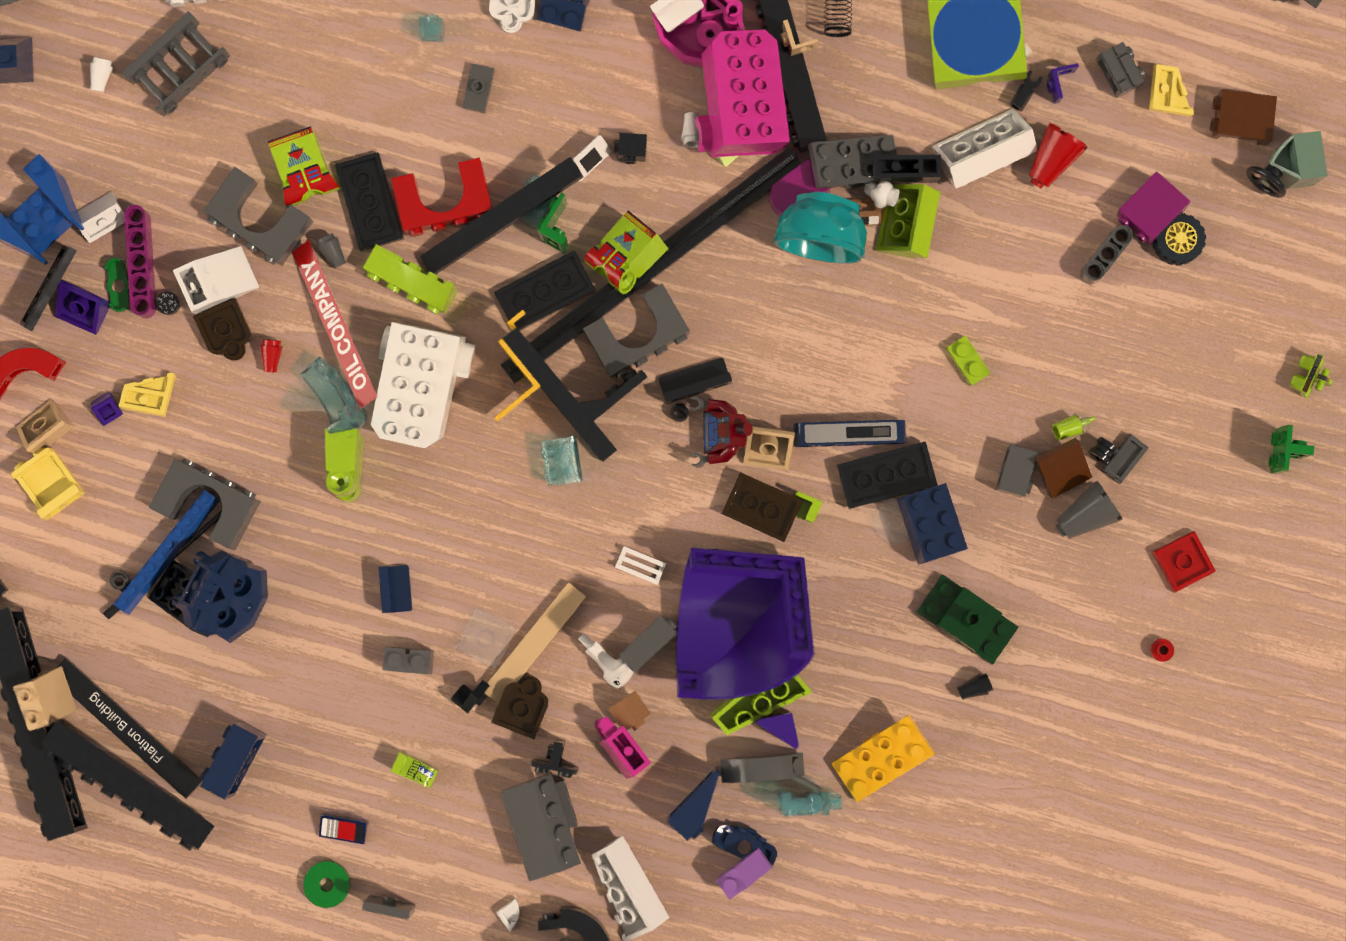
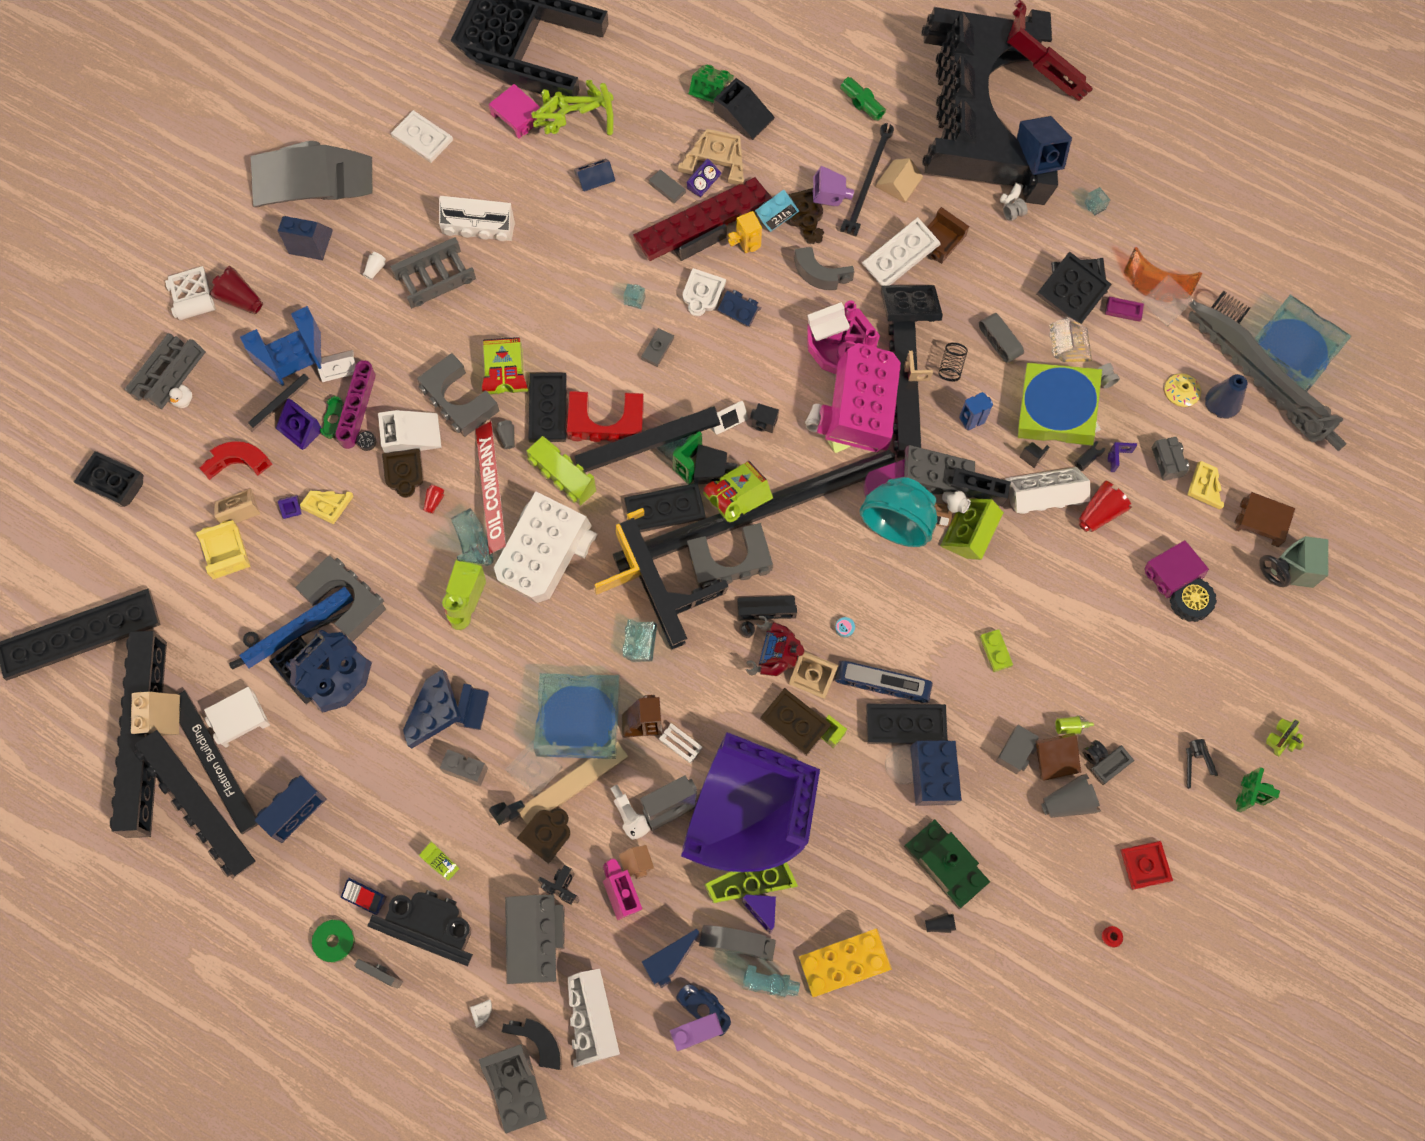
camera: 15 degrees right, 15 degrees down
(134, 673) = (235, 716): none -> white panel
(352, 605) = (432, 711): none -> dark blue plate
(424, 841) = (427, 925): none -> black brick
(517, 568) = (577, 716): none -> clear light blue tile
(585, 225) = (711, 465): none -> black torso
(591, 552) = (643, 718): none -> reddish brown wedge
(790, 380) = (845, 627): none -> tile
(880, 72) = (975, 411): none -> blue brick
(959, 106) = (1033, 454): none -> black panel
(1114, 247) = (1135, 589): dark grey beam -> none
(1217, 416) = (1199, 750): none -> black plant

